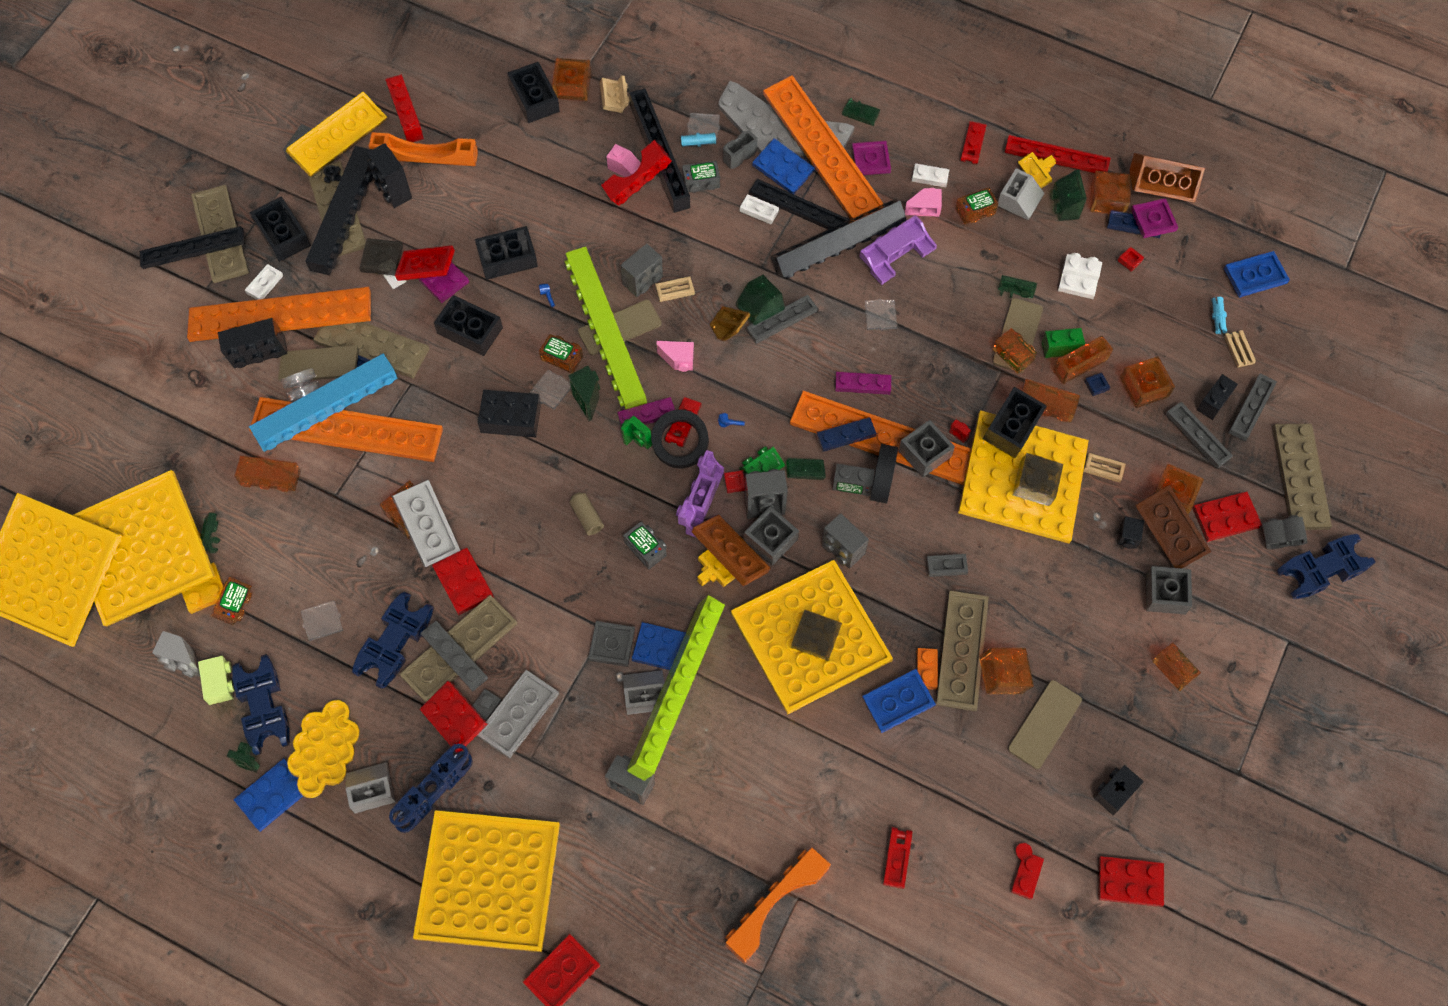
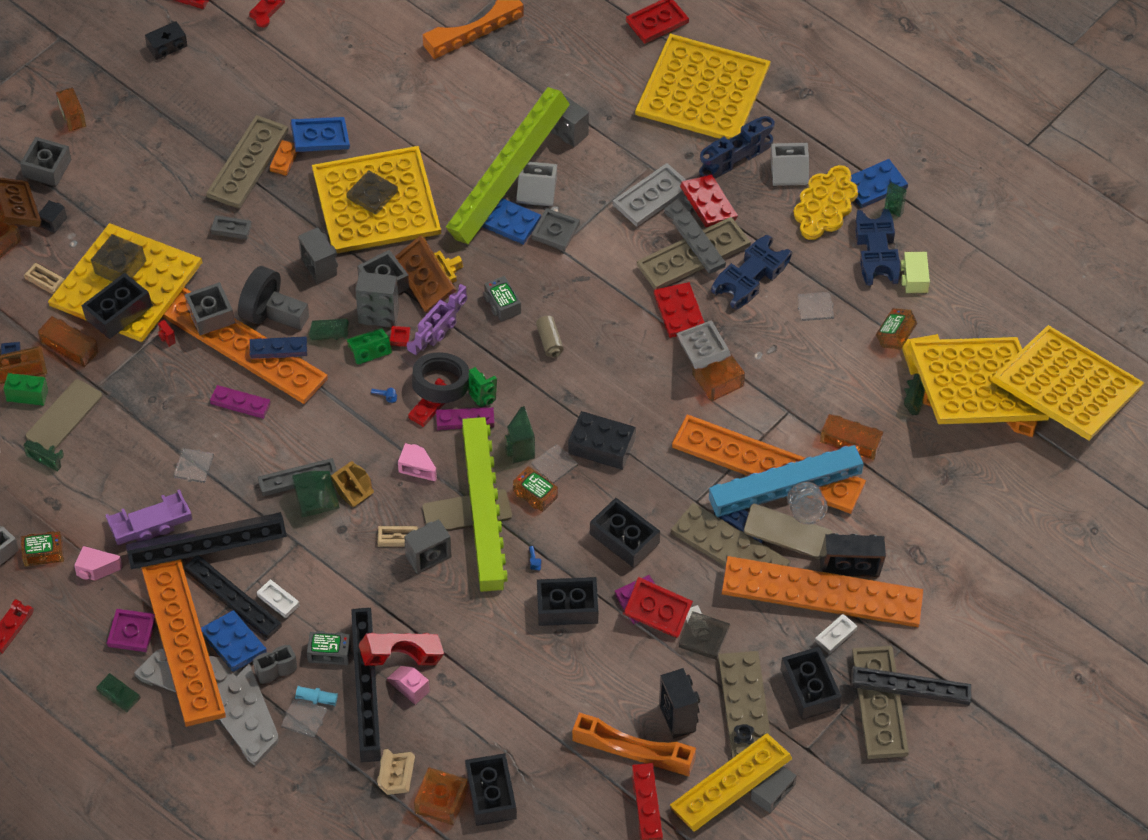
camera: 165 degrees left, 10 degrees down
(176, 654) = (947, 289): light grey slope -> none
(340, 213) = (737, 684): black brick -> none
(897, 858) = (365, 36): red plate -> none
(930, 175) = (74, 600): white plate -> none
(1006, 671) = (219, 131): clear orange brick -> none
(1015, 350) = (78, 390): clear orange brick -> none
(1045, 724) = (202, 100): dark tan piece -> none

